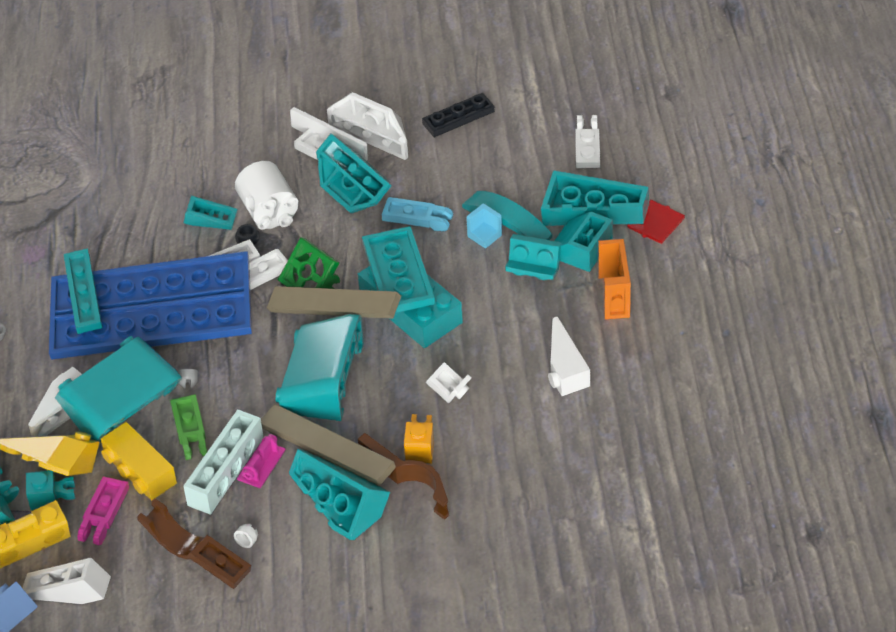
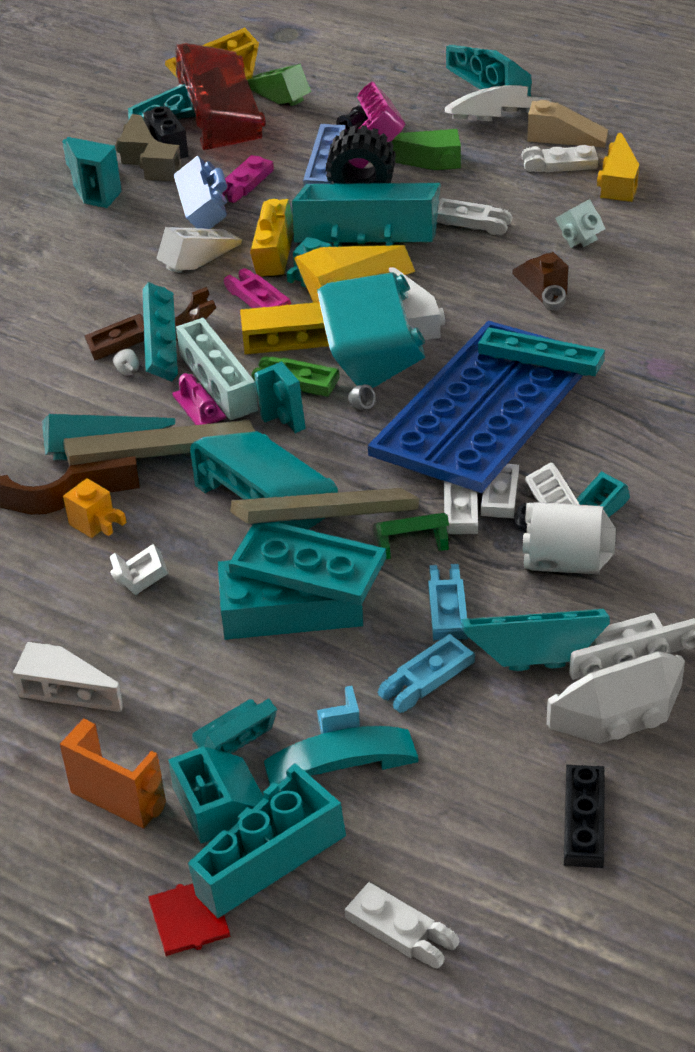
camera: 125 degrees right, 5 degrees down
(196, 530) = (159, 332): none -> teal plate
(218, 243) = (549, 486): none -> white slope
(232, 393) = (280, 396): none -> teal bracket
(351, 233) = (447, 603): none -> medium azure hinge

